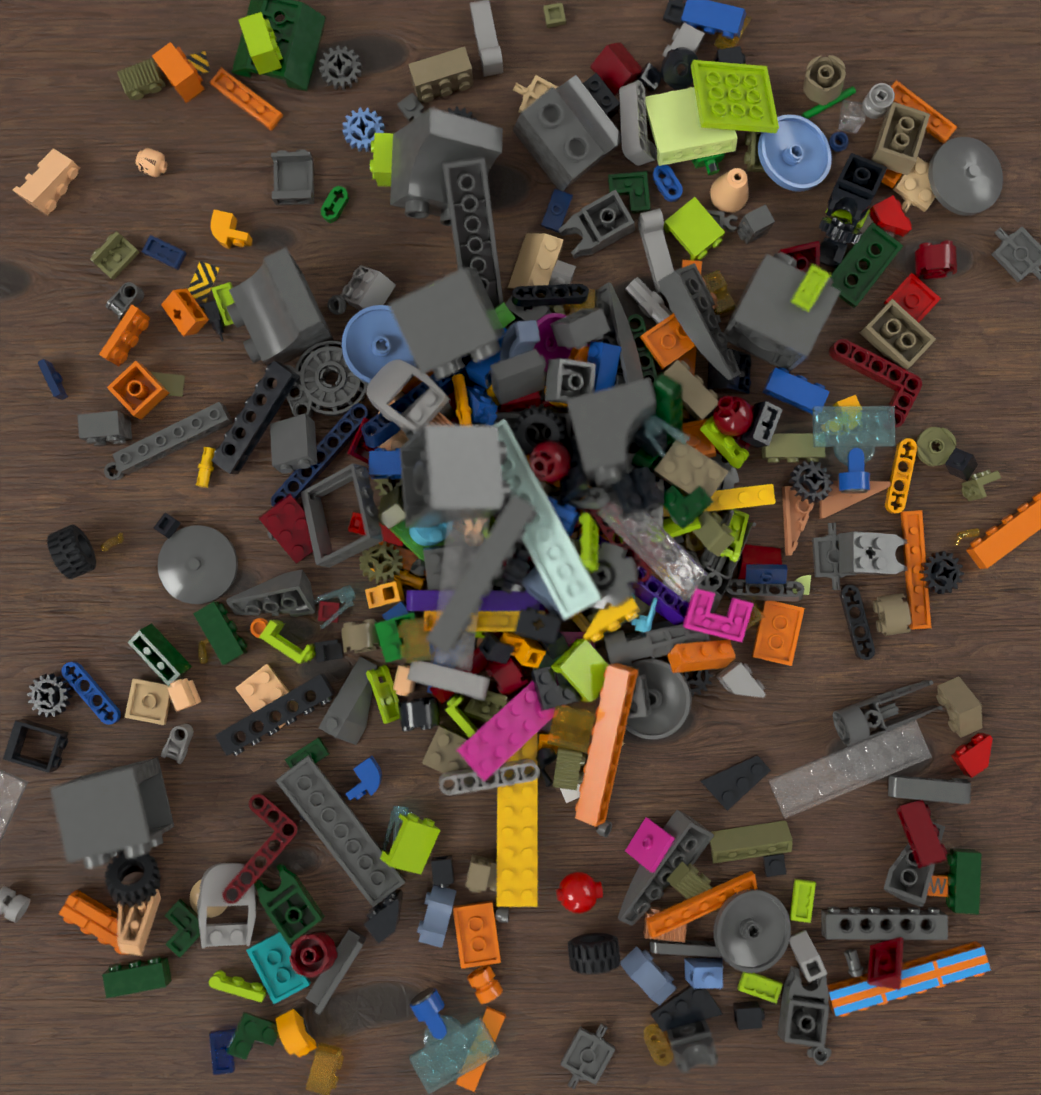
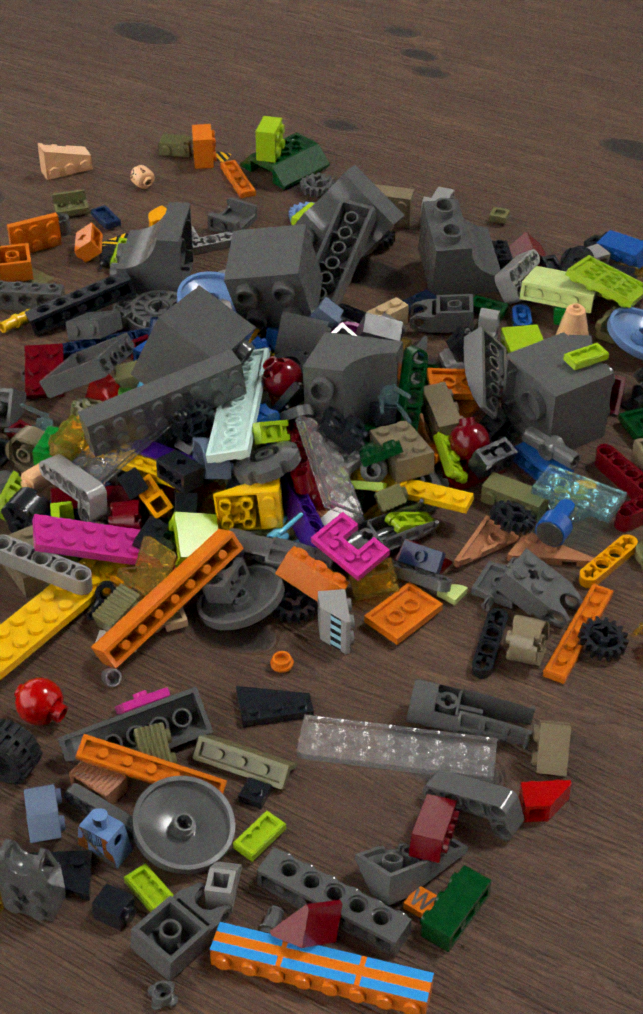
camera: 30 degrees right, 45 degrees down
(281, 239) = (211, 242): none -> light grey beam
(644, 268) = (456, 341): none -> black brick
(717, 736) = (281, 662): none -> orange plate
(803, 381) = (551, 447): none -> dark grey piece

